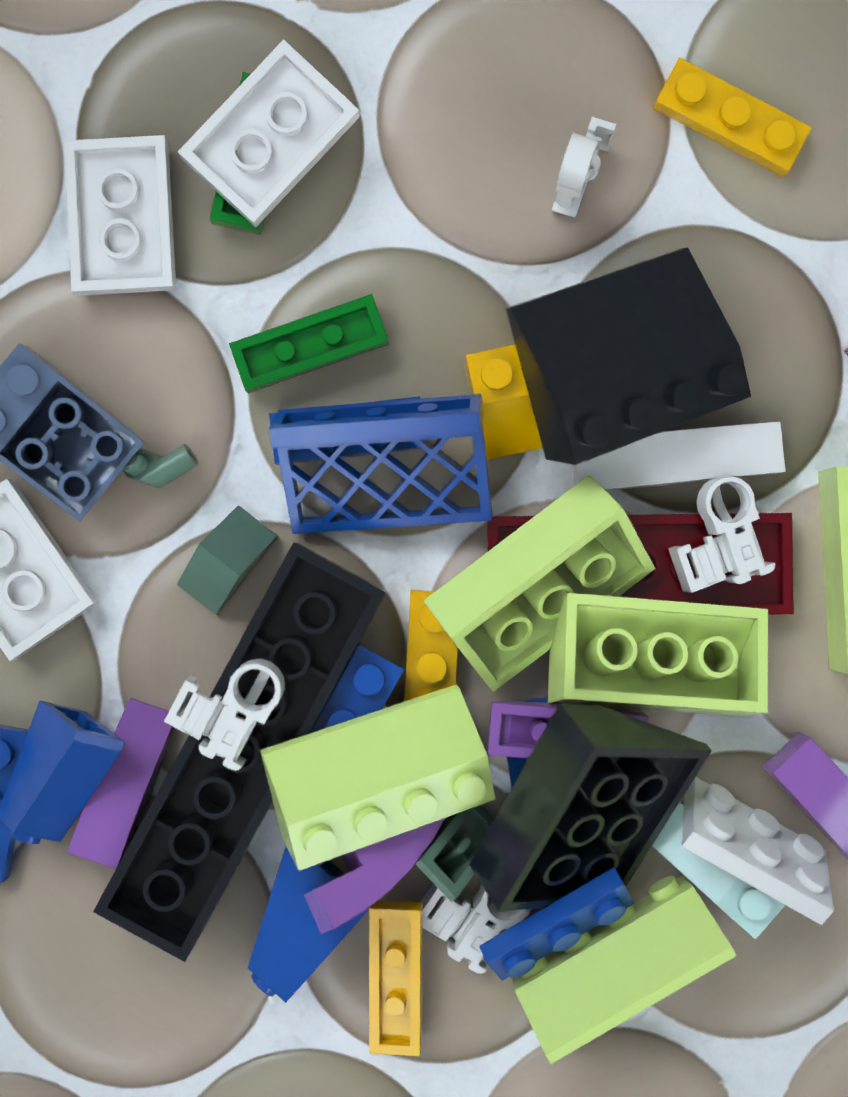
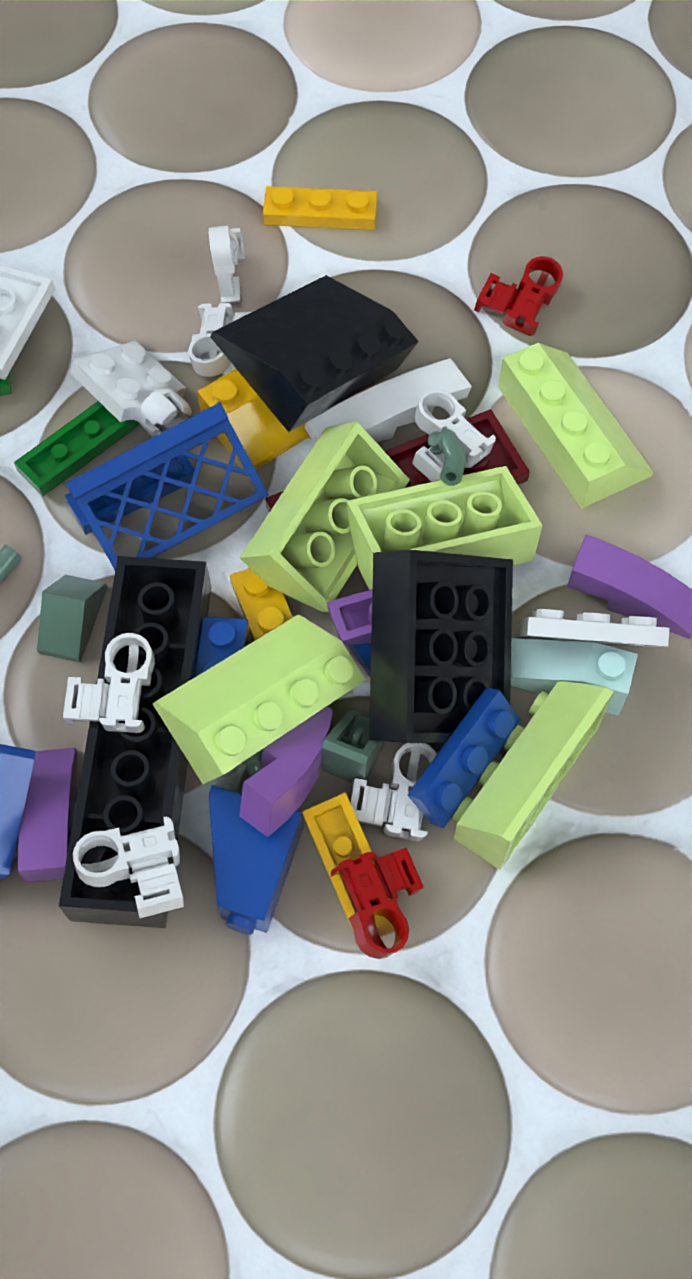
camera: 25 degrees left, 25 degrees down
(193, 912) = (148, 862): none -> white piece
(397, 1020) = (377, 884): none -> red piece
(401, 300) = (133, 386): none -> white plate
(539, 257) = (201, 343): none -> white piece
(715, 579) = (455, 458): none -> sand green arm

